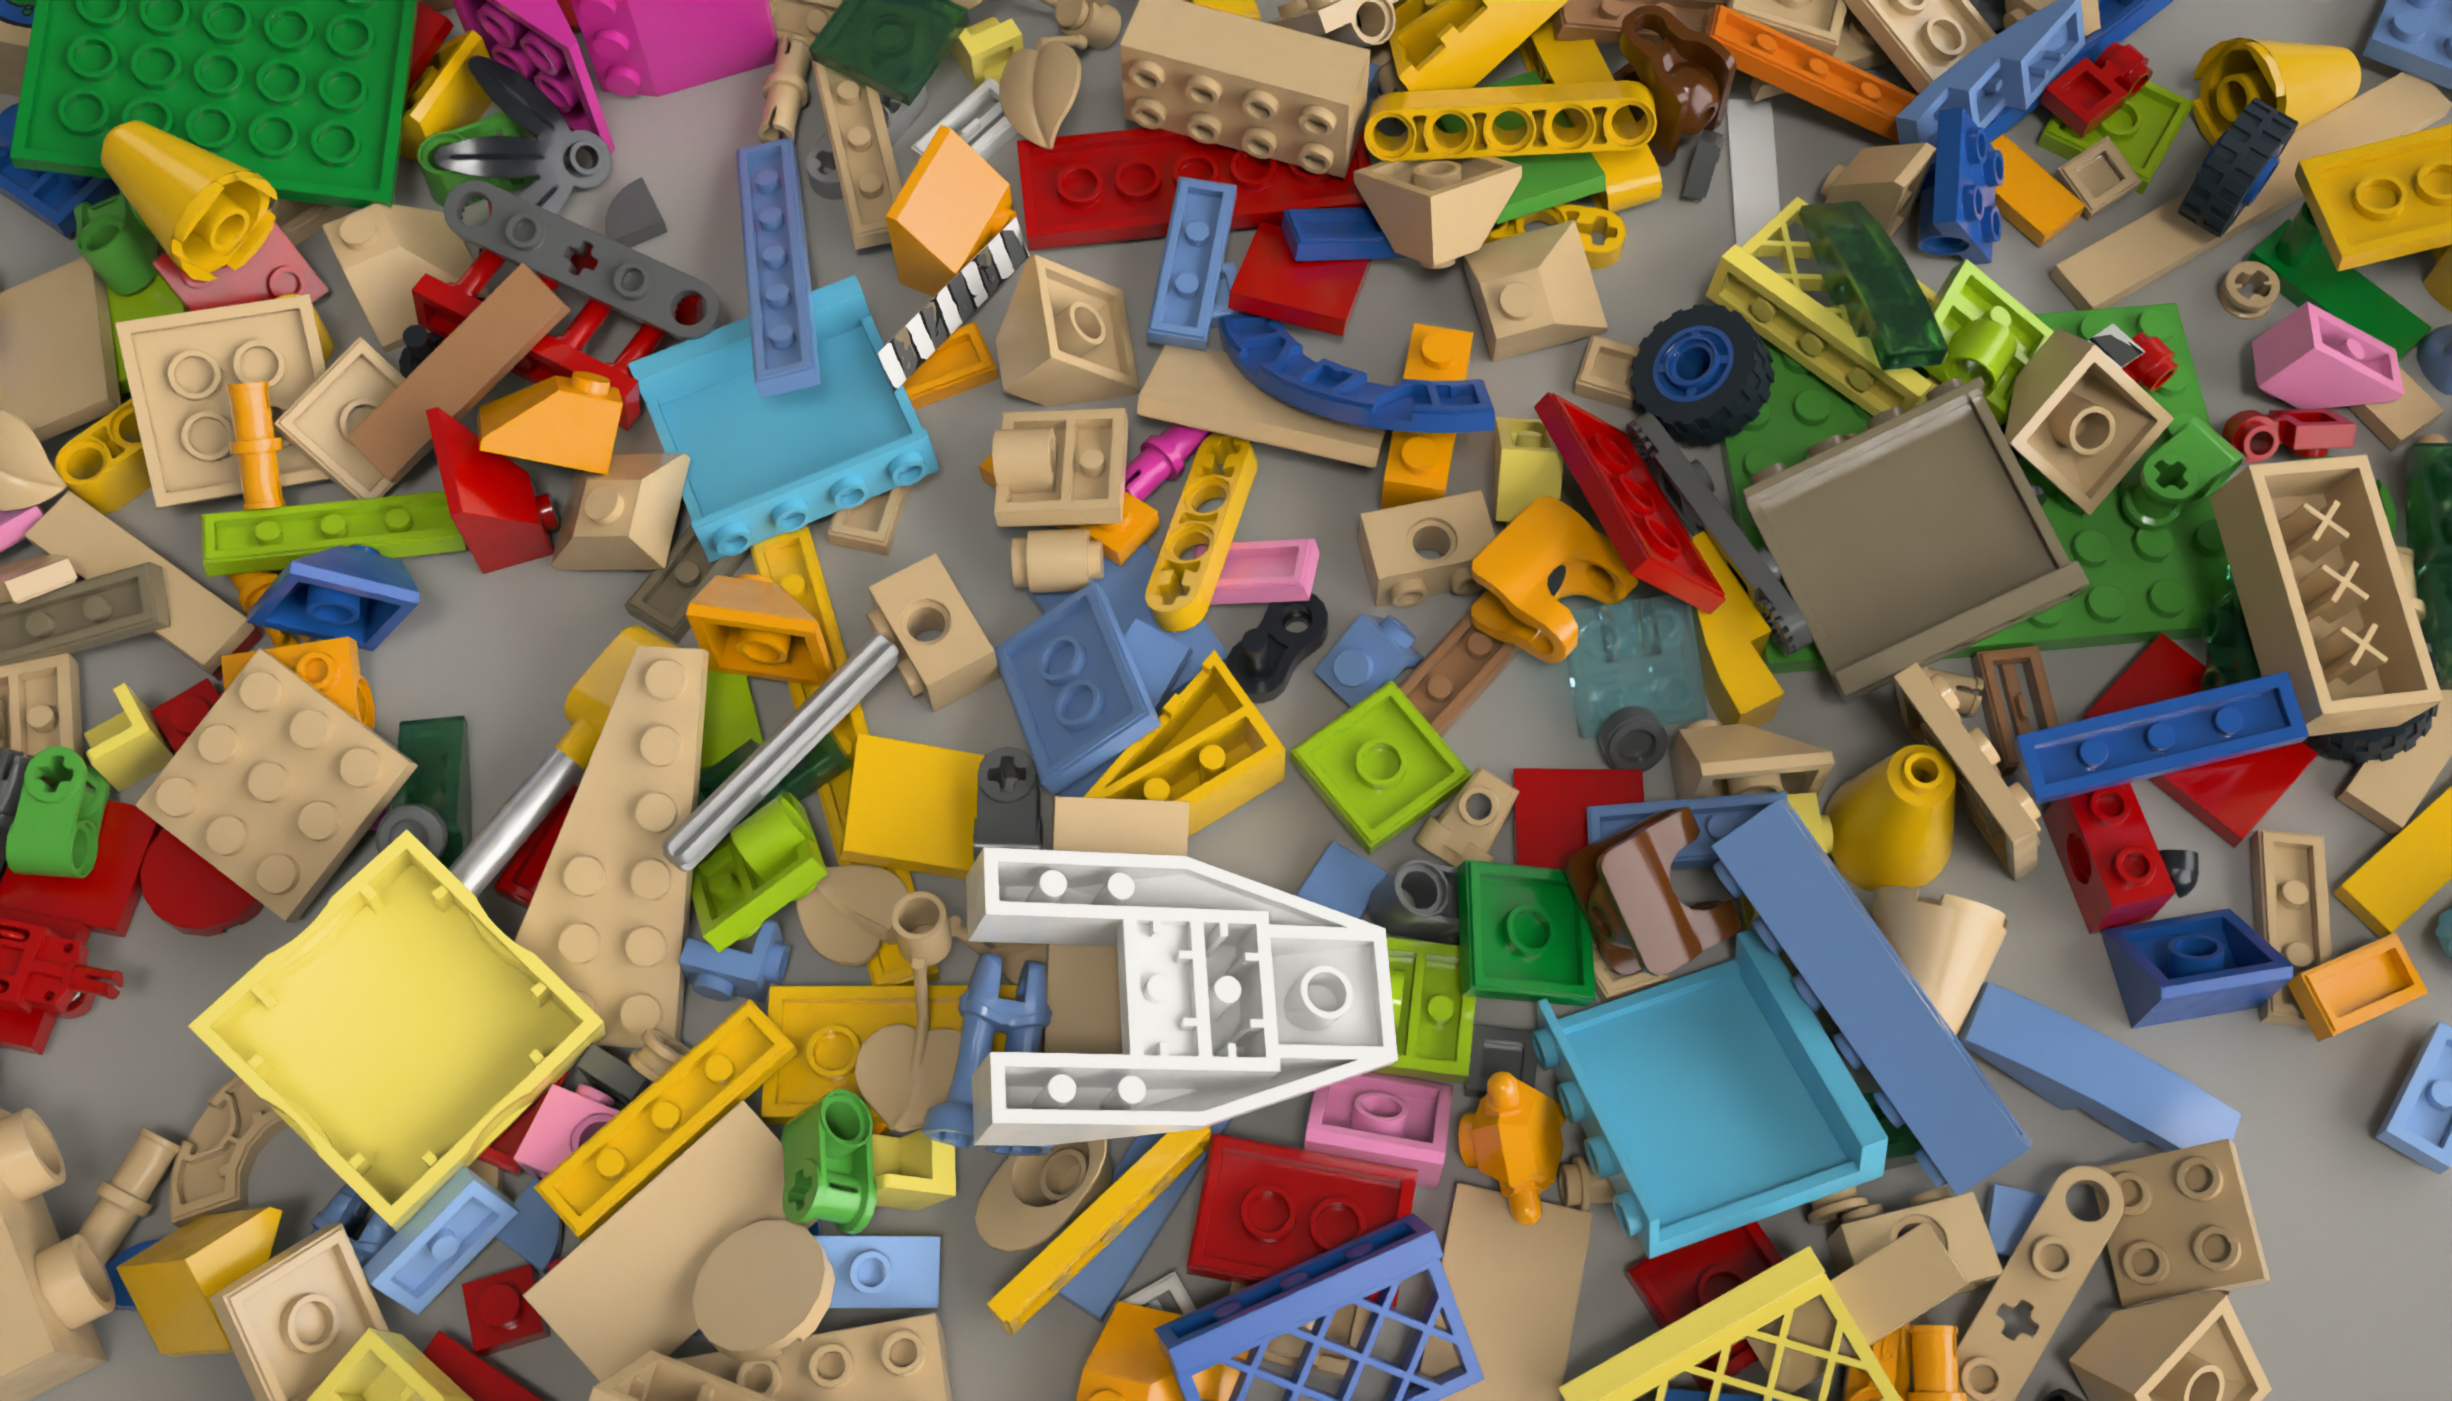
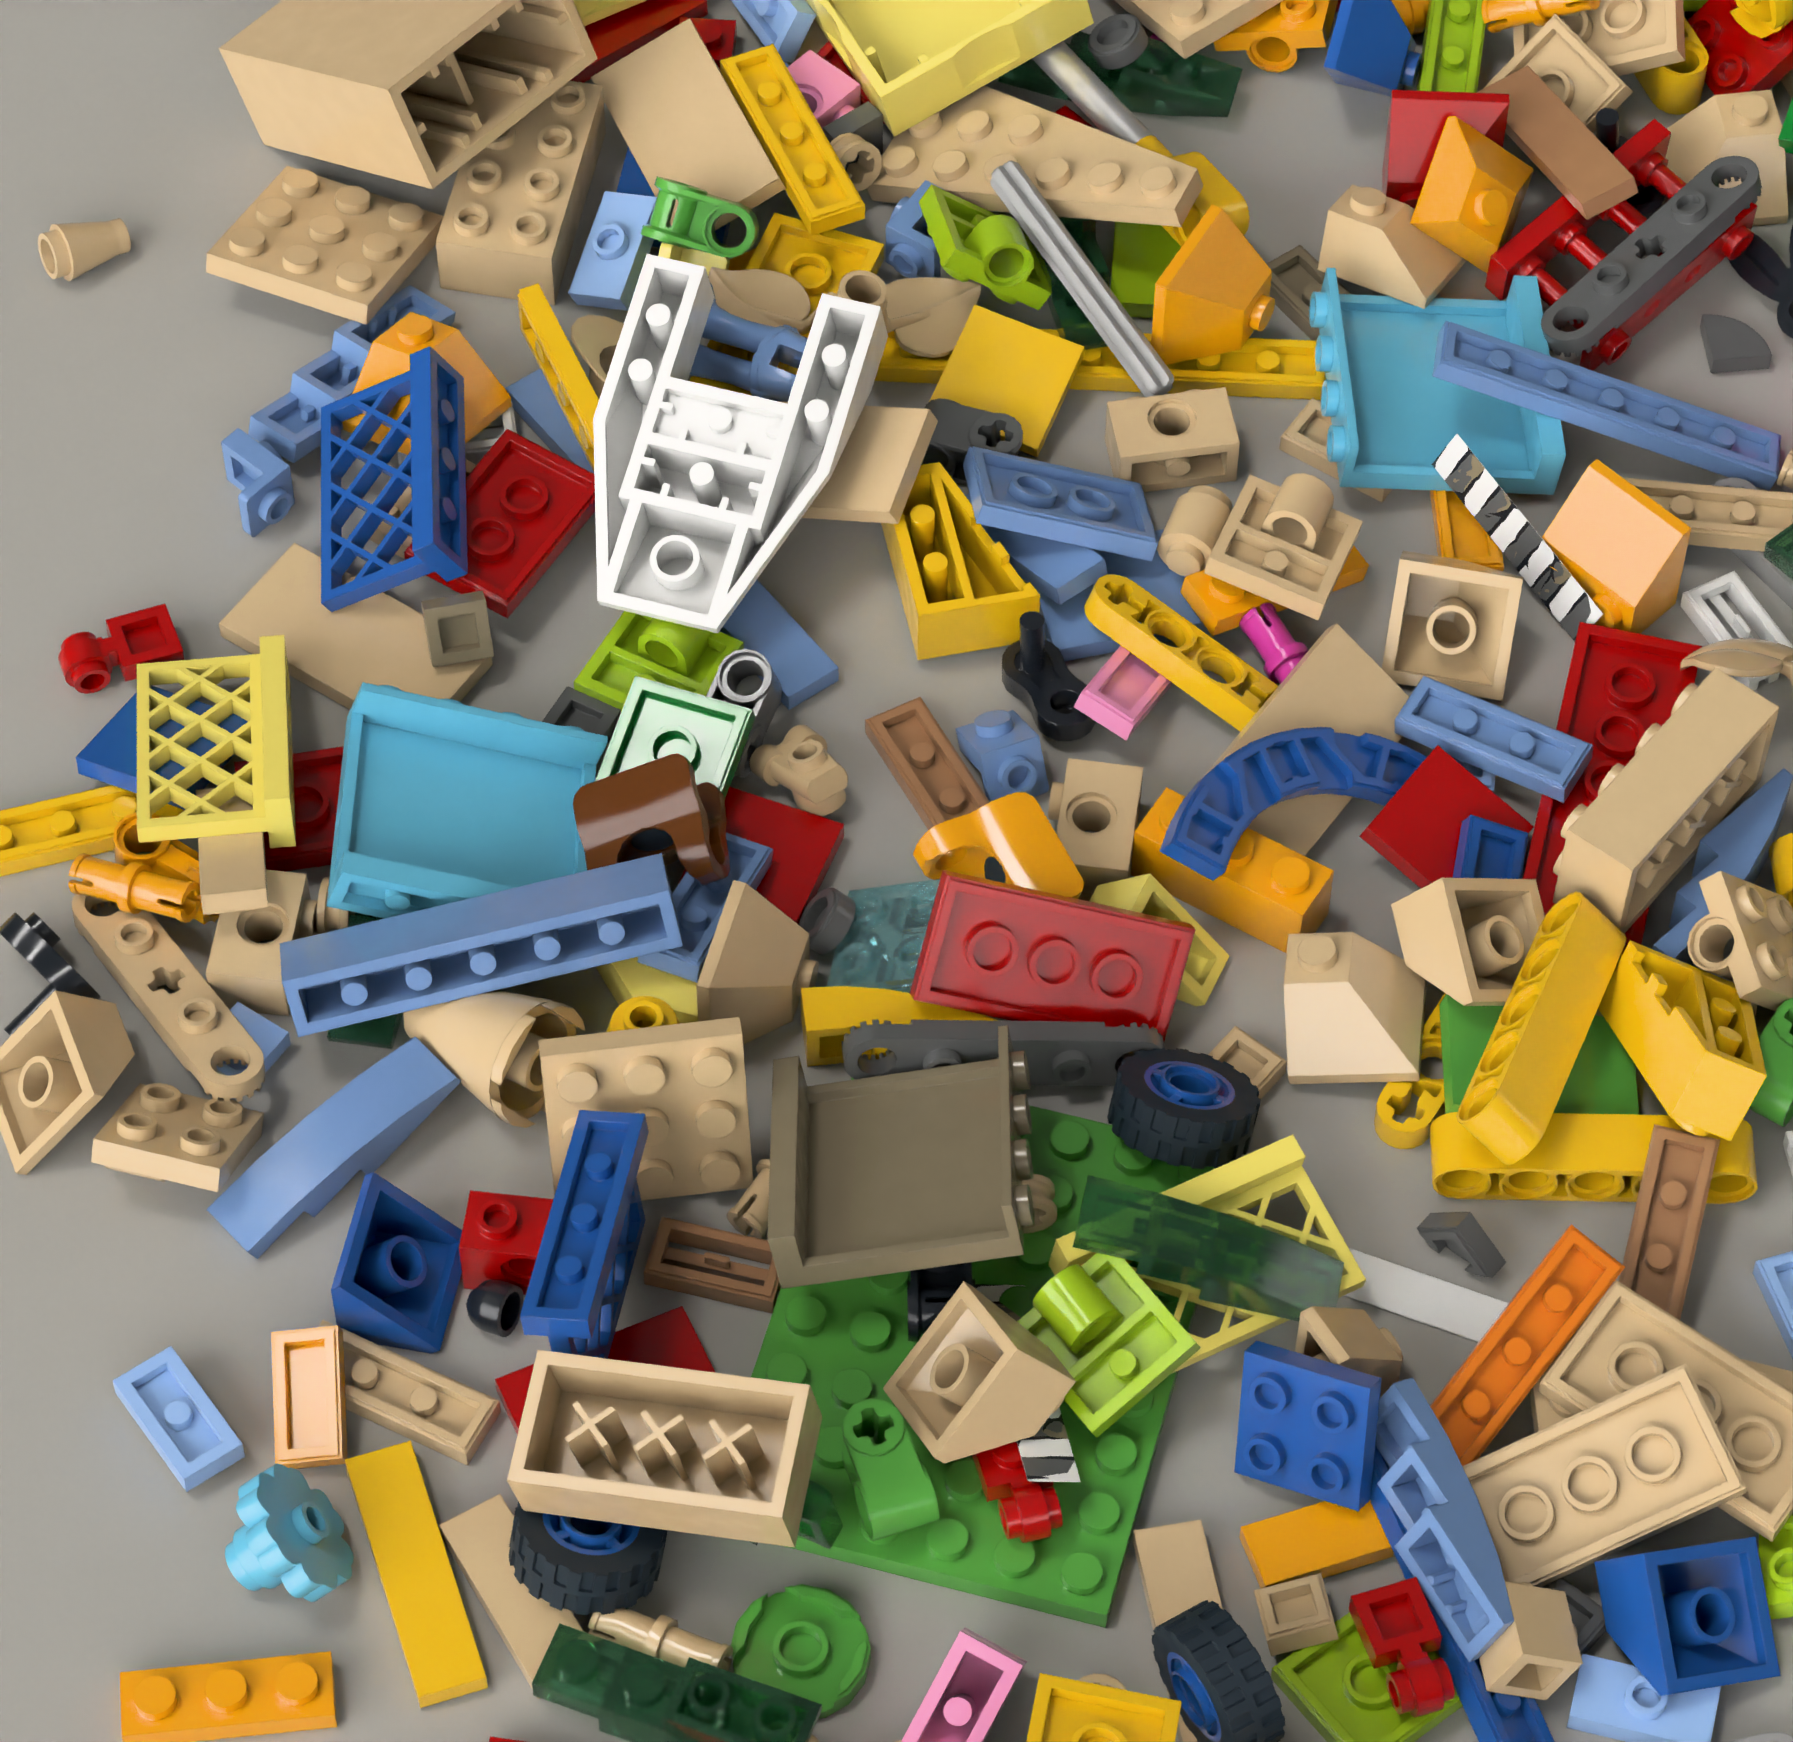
camera: 110 degrees right, 10 degrees down
(763, 1290) = (618, 153): tan tile -> none
(1380, 767) = (888, 716): lime tile -> none
(1383, 1122) = (551, 608): bright pink slope -> none
(1469, 1209) = (457, 628): none -> dark tan tile
(1515, 1142) = (496, 677): light orange rock -> none
(1685, 74) = (1537, 1194): reddish brown piece -> none
(2302, 430) = (897, 1652): red plate -> none

